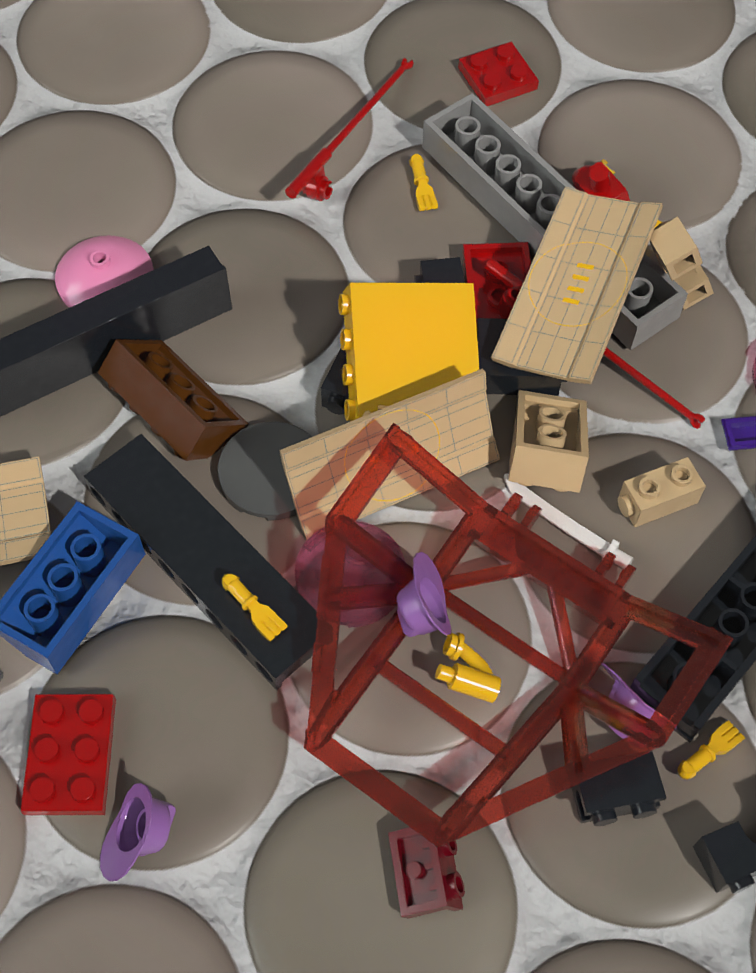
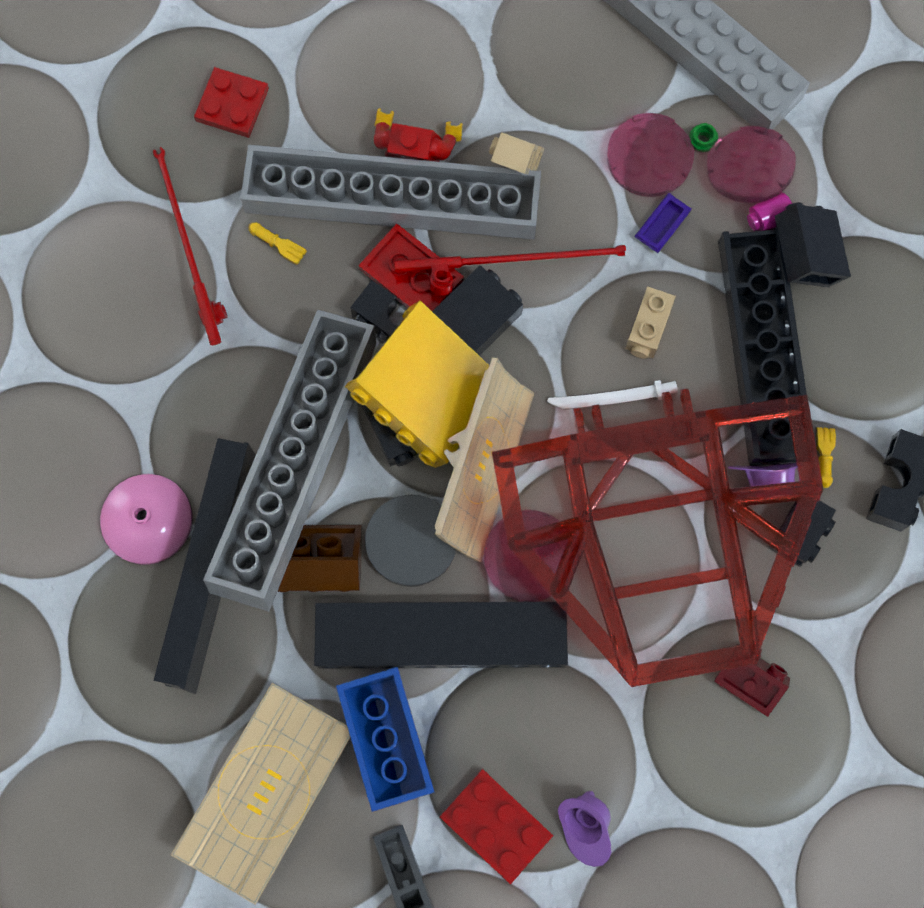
camera: 45 degrees left, 15 degrees up
(225, 313) = (290, 462): none -> light grey brick
(262, 616) = (521, 638): yellow piece -> none
(422, 600) = (599, 535): medium lavender piece -> none
(473, 680) = (668, 550): yellow plant -> none
(549, 442) = (553, 352): tan slope -> none
(576, 286) = (478, 235): tan hinge -> none

